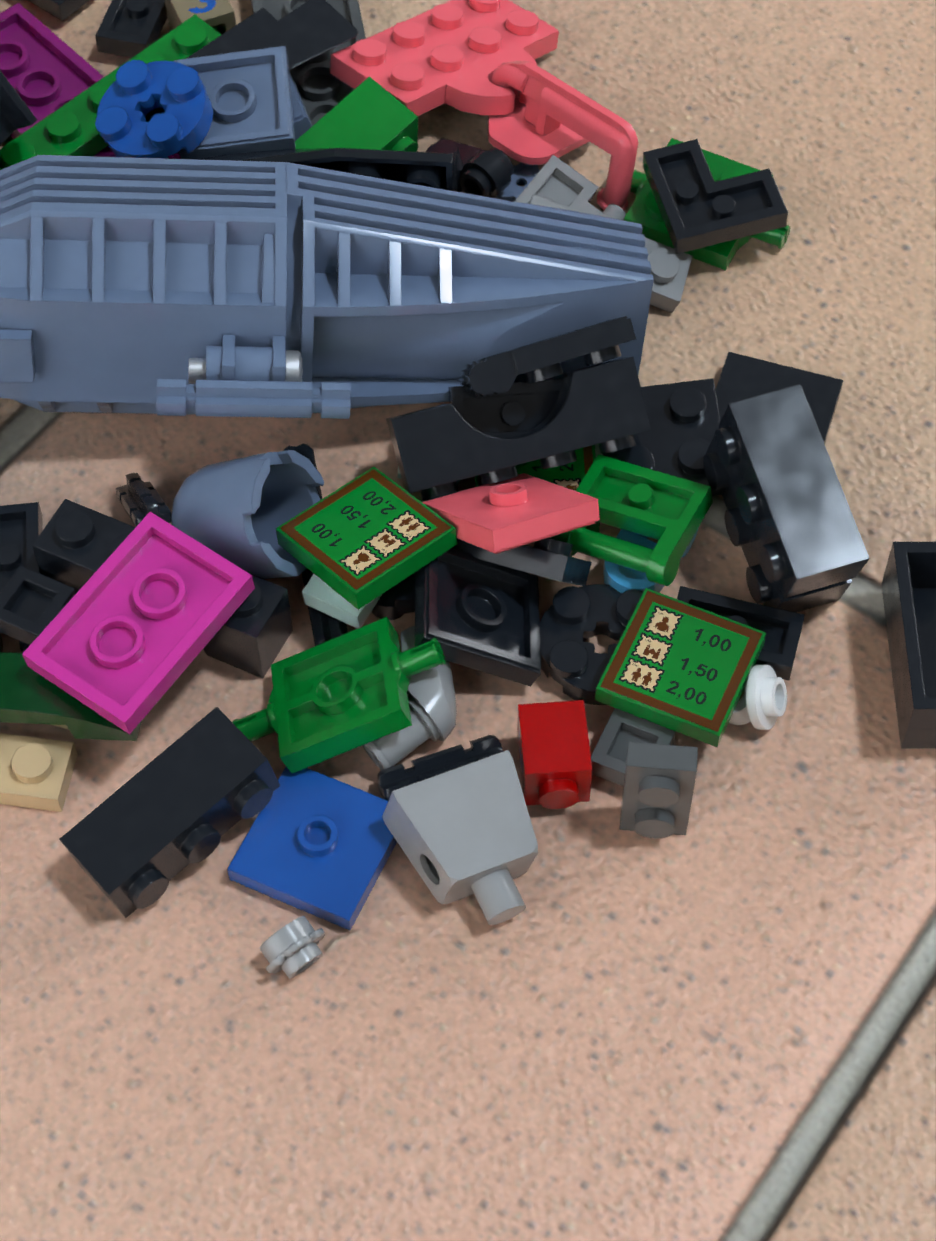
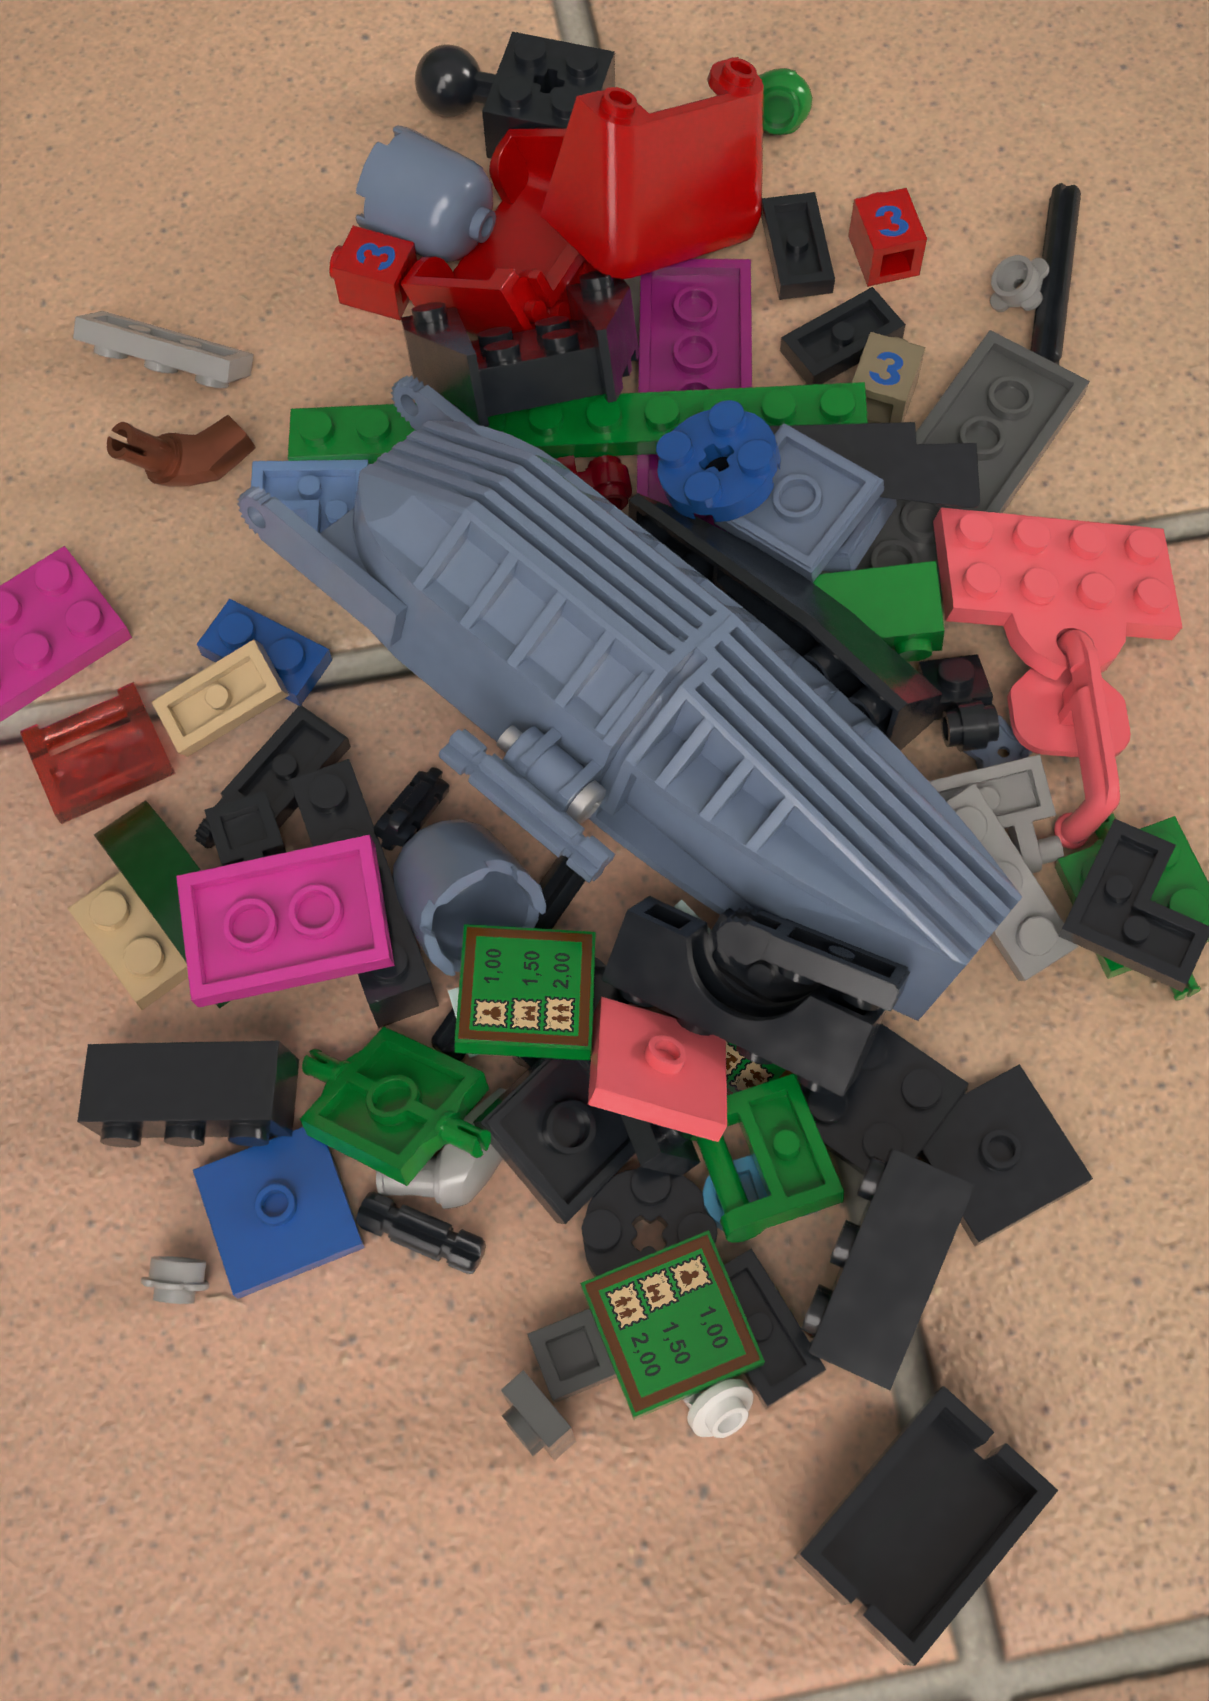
camera: 45 degrees right, 10 degrees up
(468, 834) = (372, 1314): light grey torso -> none
(554, 753) = (507, 1303): red brick -> none

